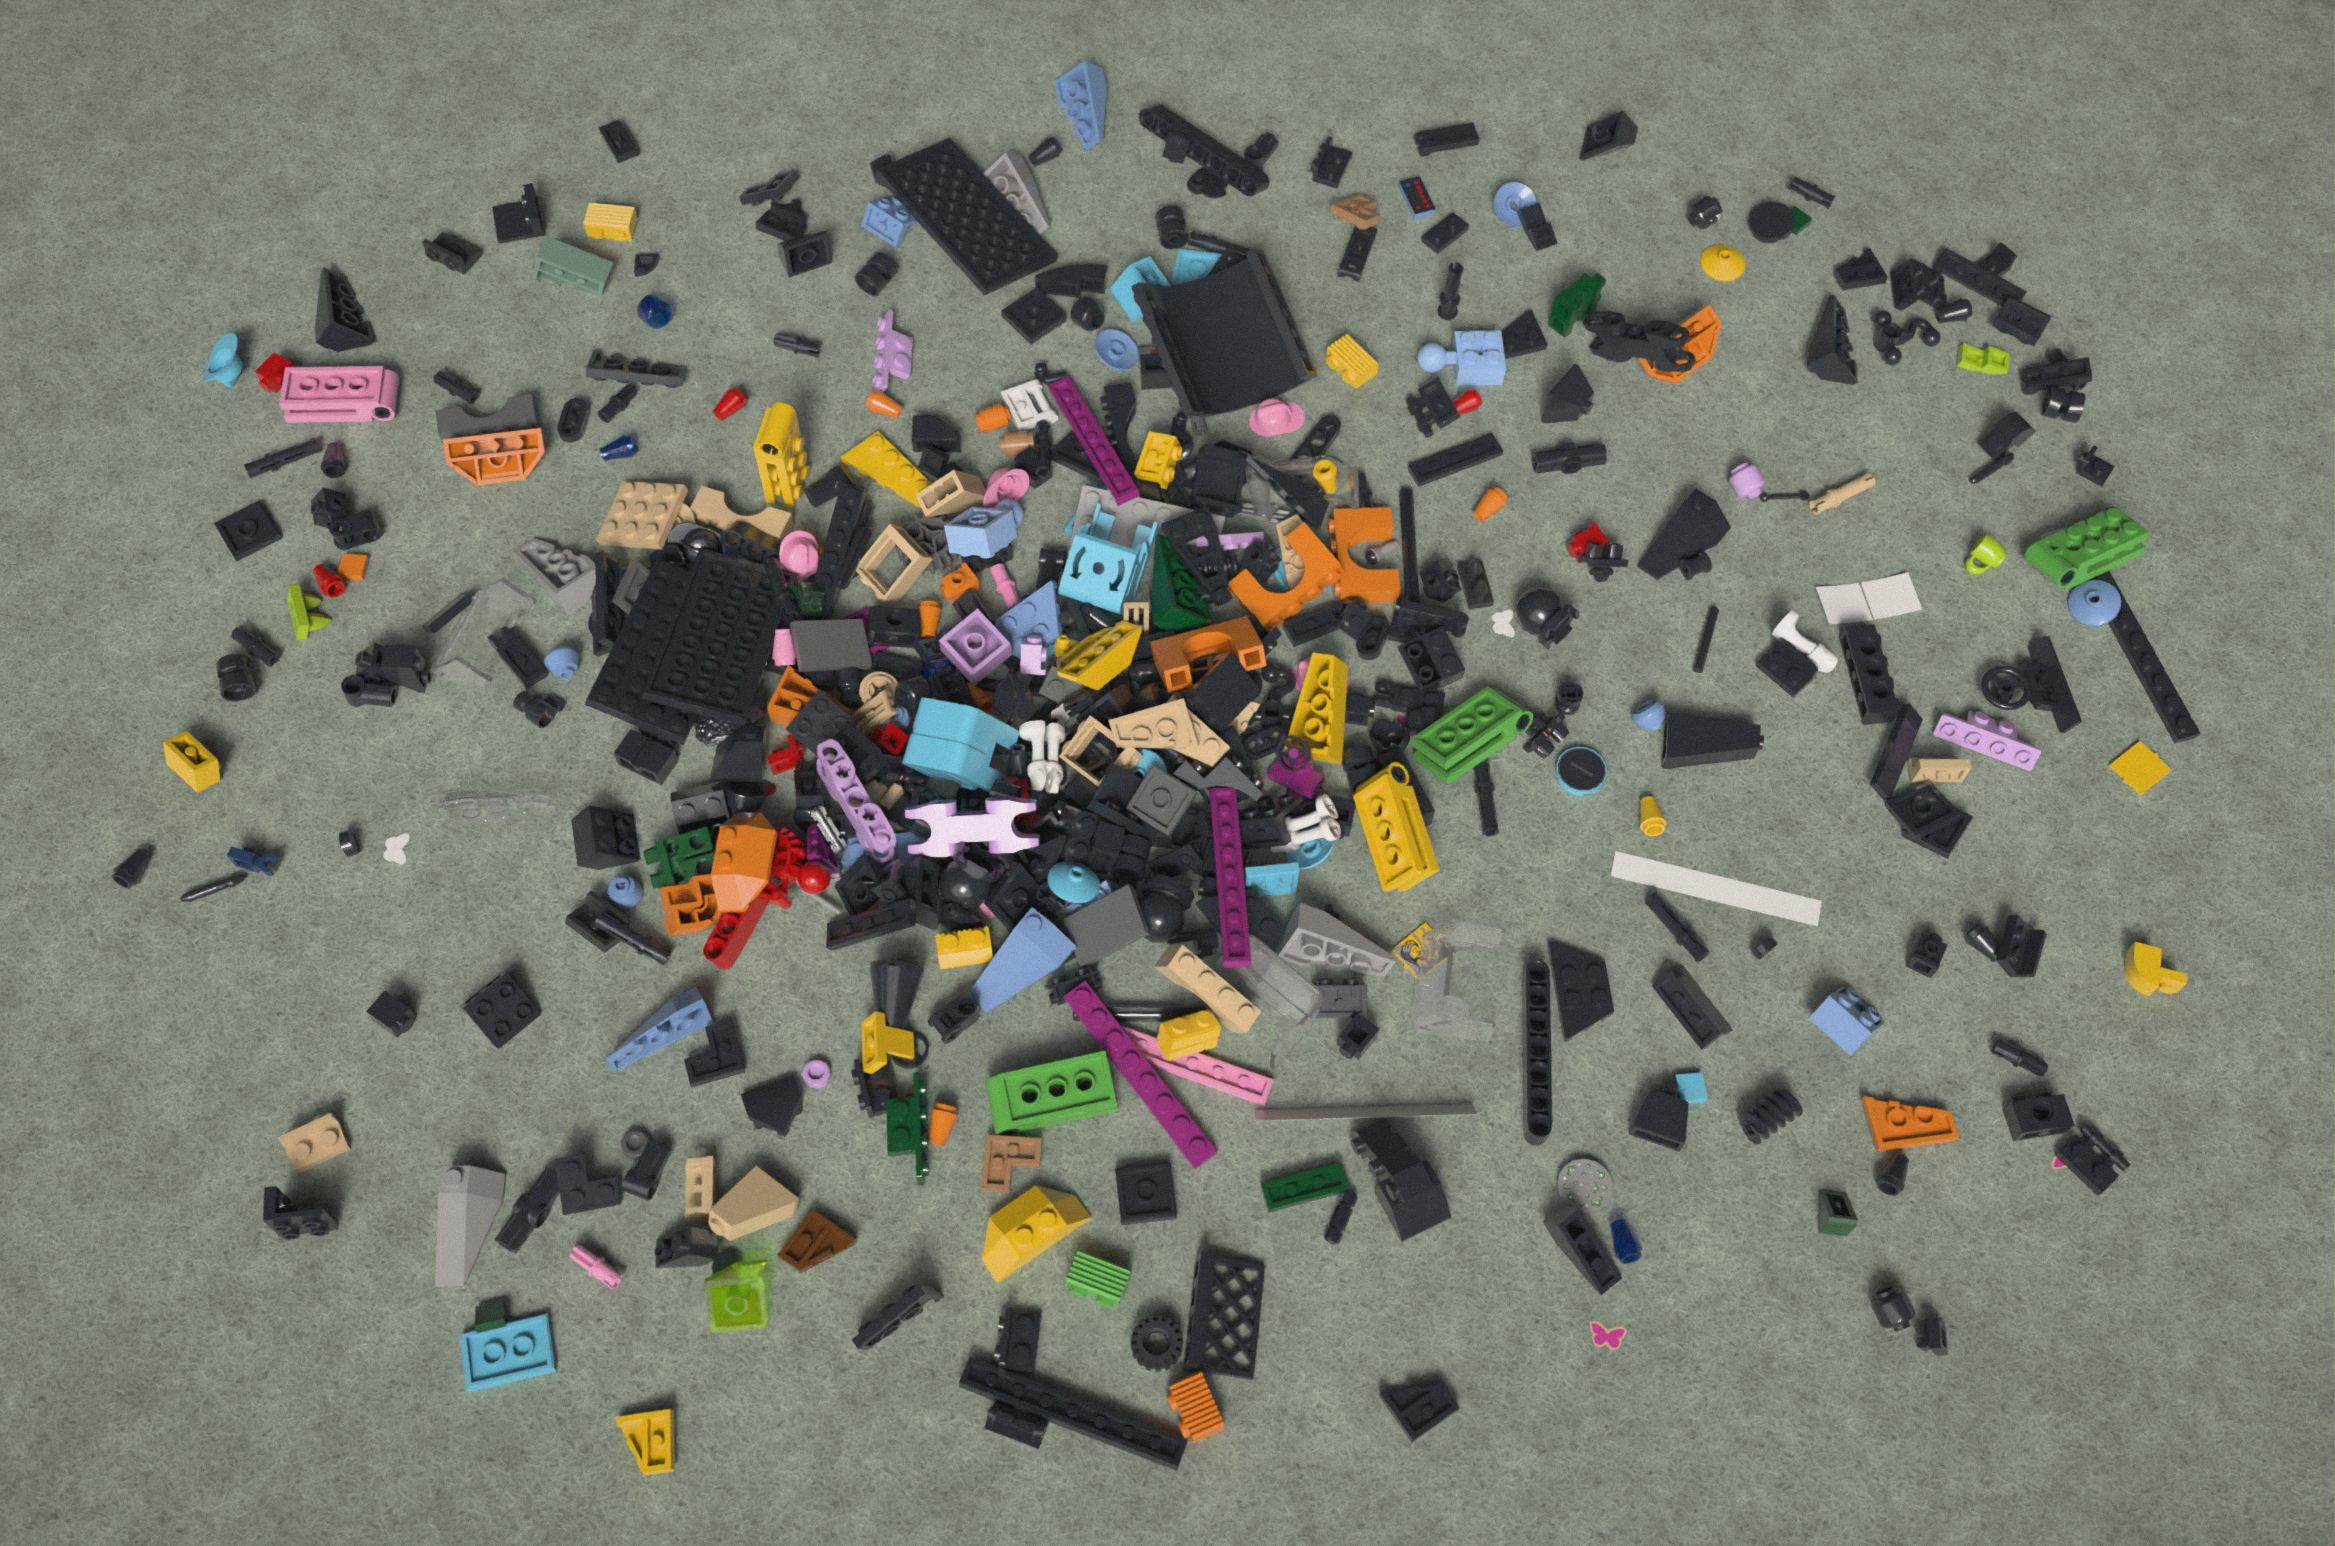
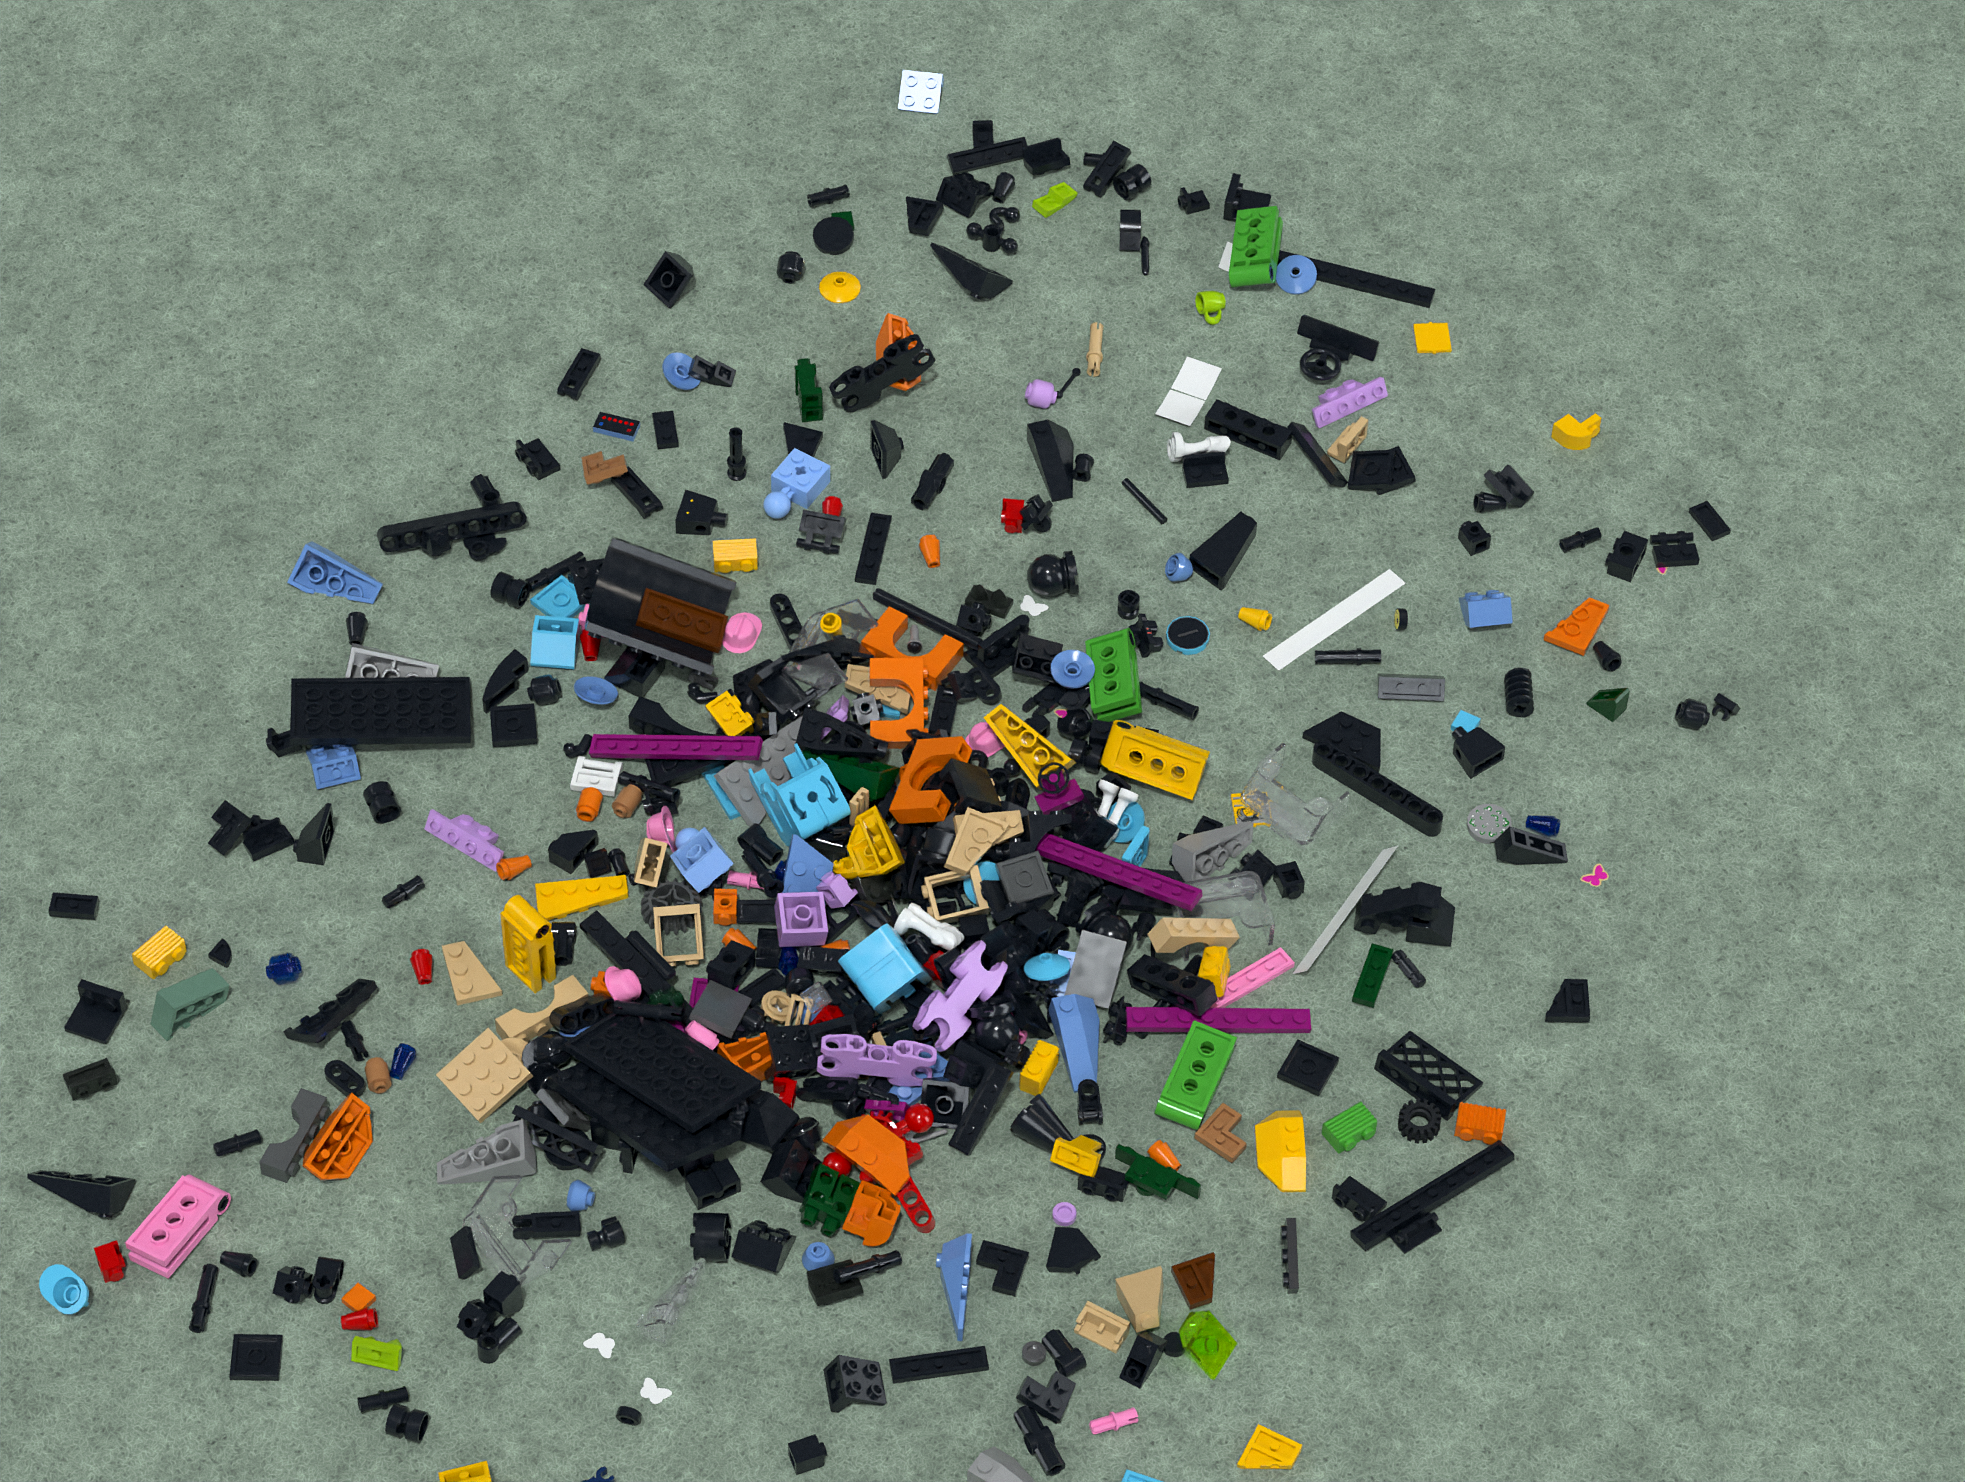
camera: 55 degrees left, 10 degrees down
(423, 775) = (603, 1344): none -> white sticker
(570, 1068) = (938, 1364): none -> black tile
(578, 788) = (711, 1236): none -> black brick
(591, 440) = (377, 1075): none -> medium nougat brick
(737, 447) = (468, 975): none -> tan wing
(889, 710) = (816, 997): none -> clear tile
(1028, 572) = (766, 877): none -> black pin
(1139, 1007) = (1172, 985): none -> black brick
(1173, 491) = (765, 724): none -> black bracket
(1238, 363) = (682, 620): none -> reddish brown tile
(1260, 621) = (916, 734): none -> black piece
(1367, 926) = (1207, 824): none -> black tile
(1370, 308) = (698, 515): none -> black torso
(1443, 684) = (1072, 661): none -> medium blue dish
(1996, 187) = (920, 91): none -> bracket
(2135, 502) = (1242, 199): none -> black bracket
(2164, 1173) = (1709, 521): none -> black tile

